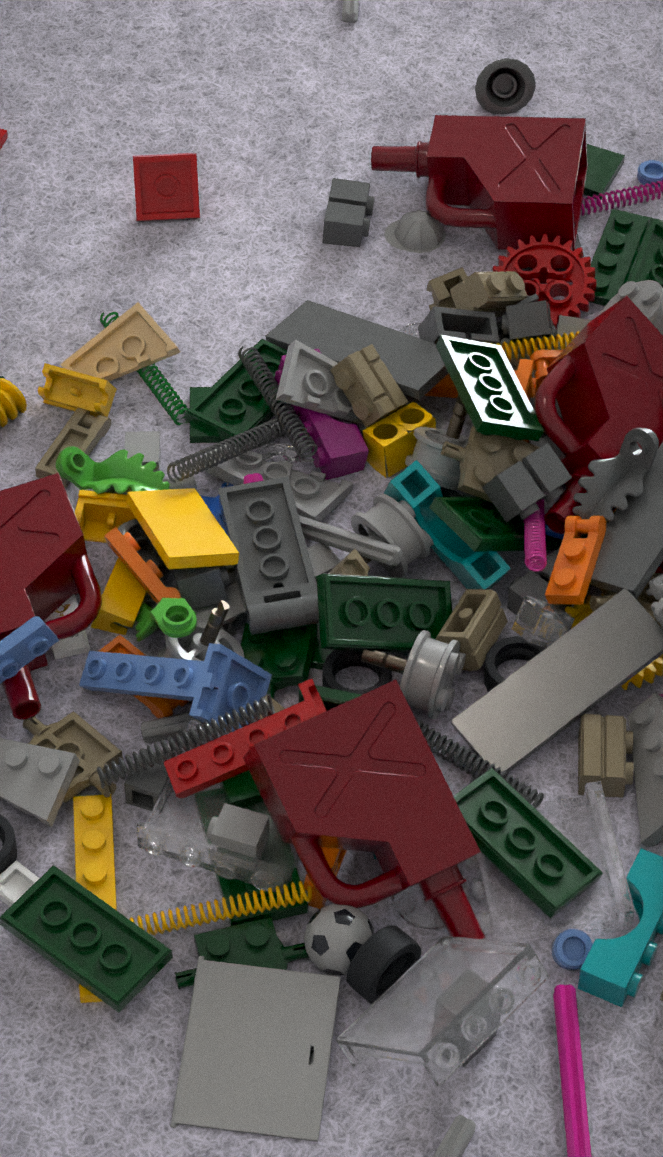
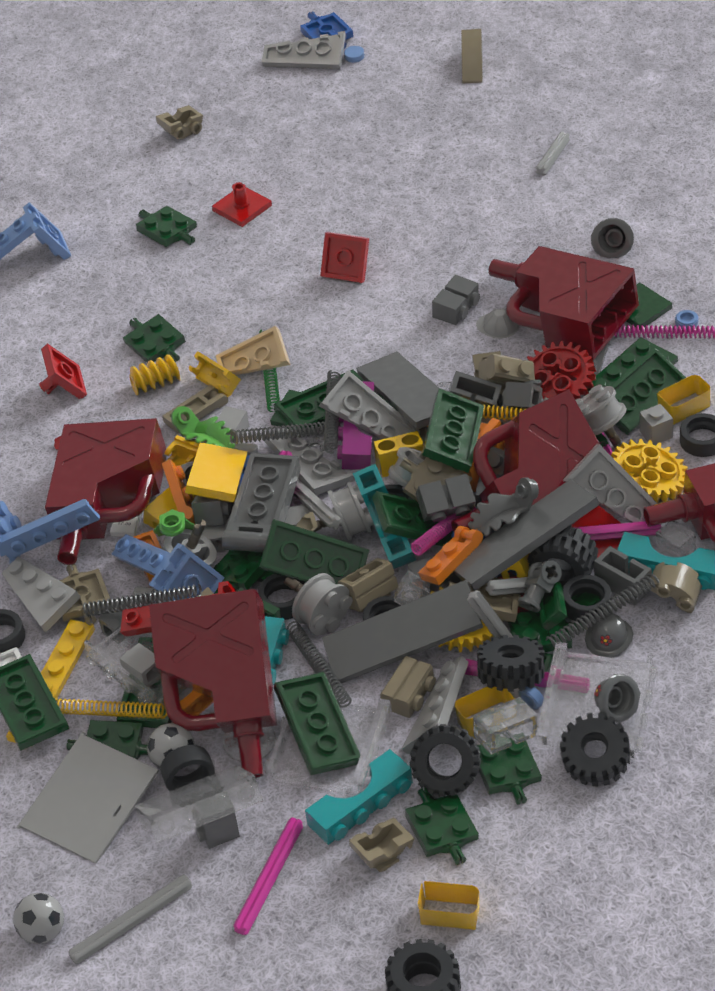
camera: 30 degrees right, 5 degrees down
(368, 386) = (387, 412): dark tan brick -> none
(571, 949) = (312, 795): medium blue tile -> none

